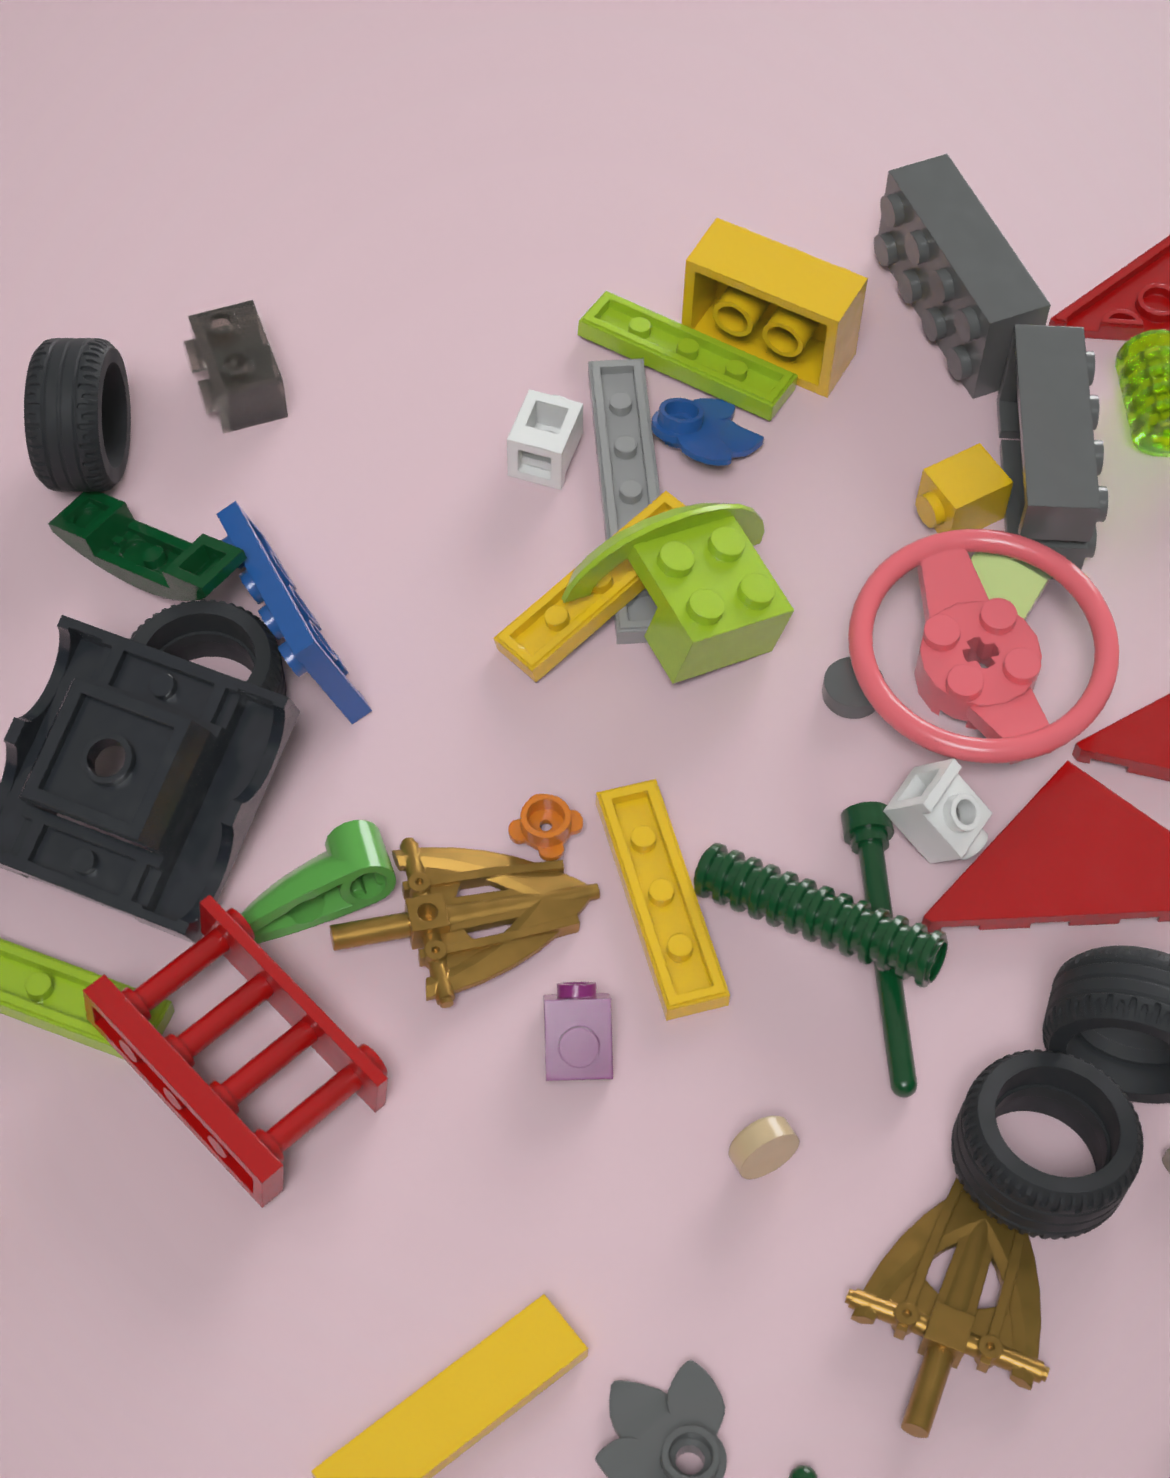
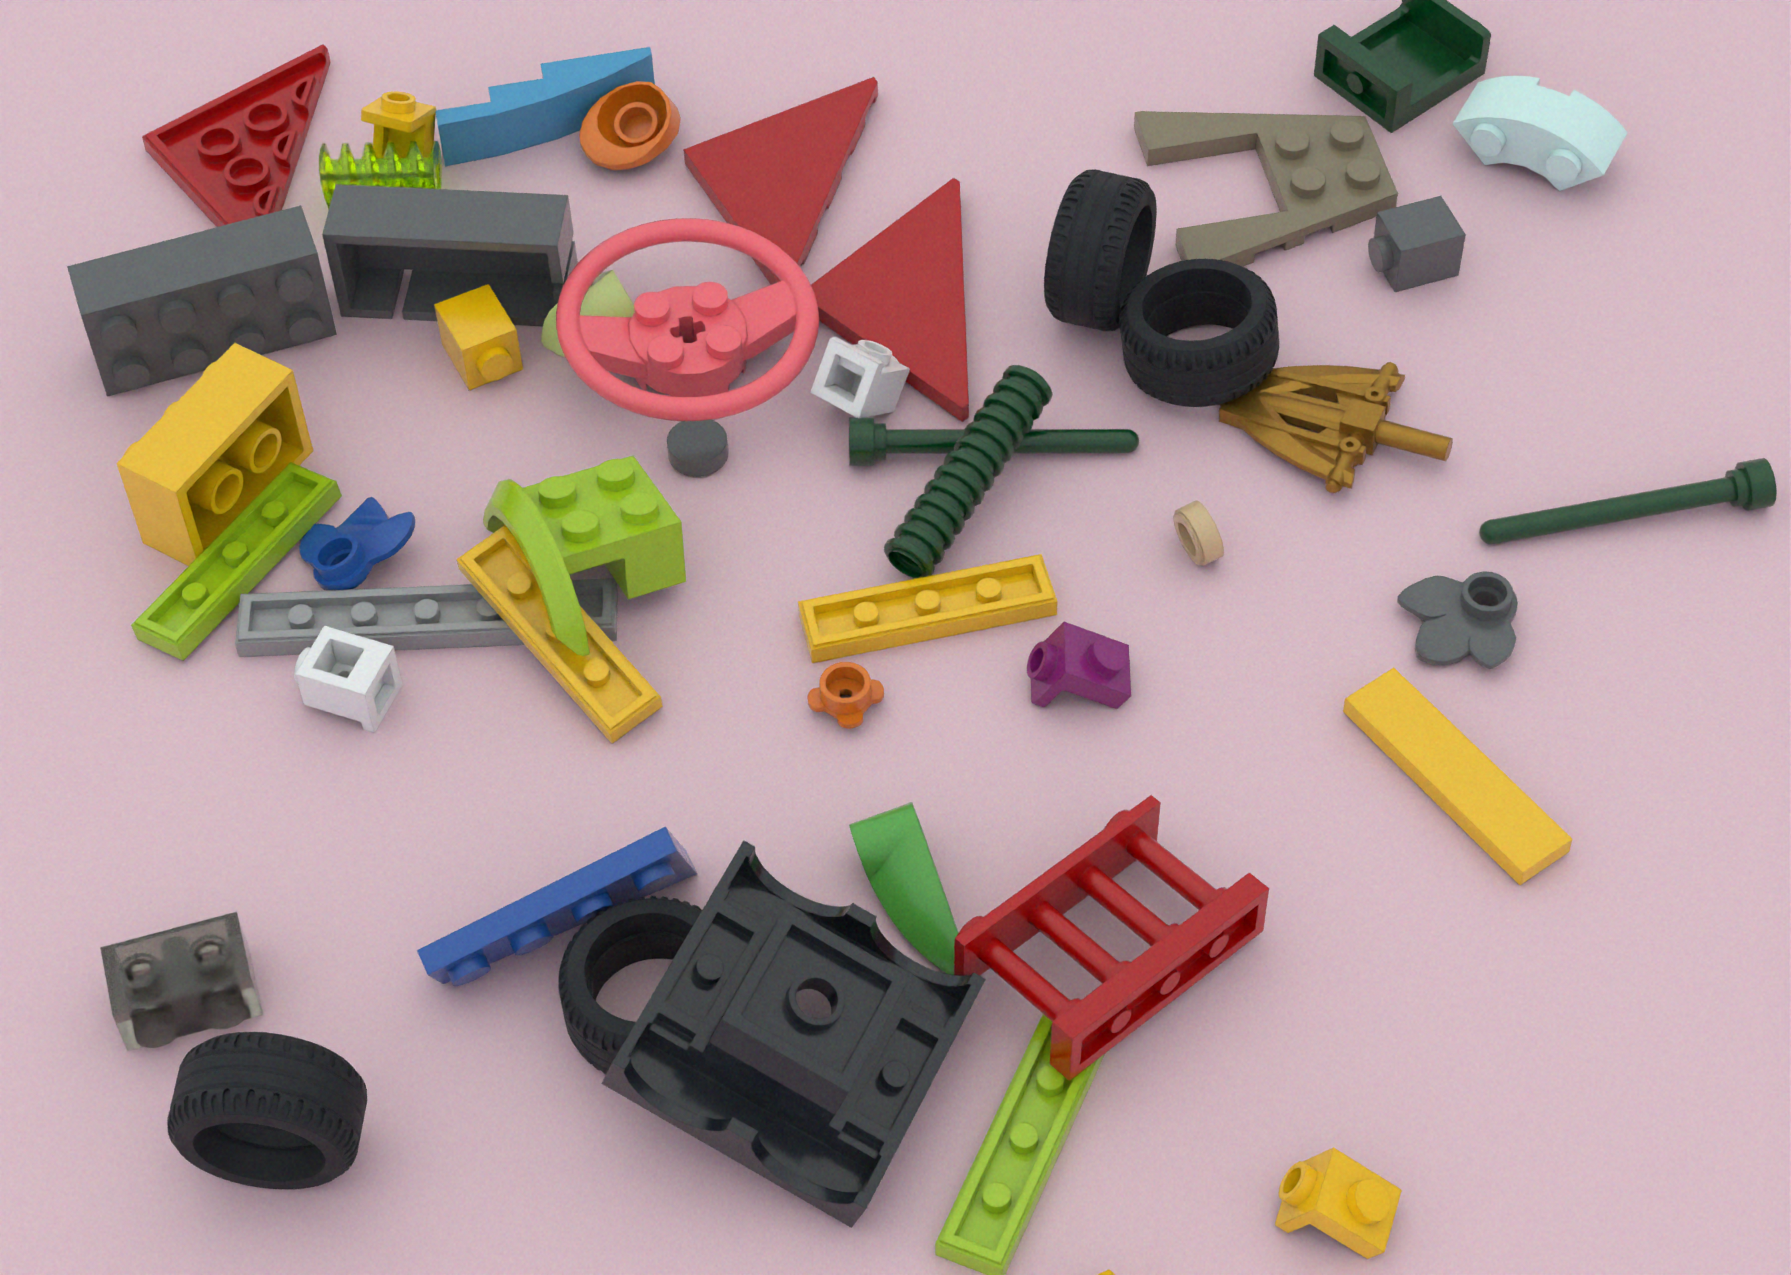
camera: 85 degrees left, 5 degrees down
(142, 555) = (465, 1054): dark green slope -> none
(533, 898) = (932, 705): pearl gold bar -> none

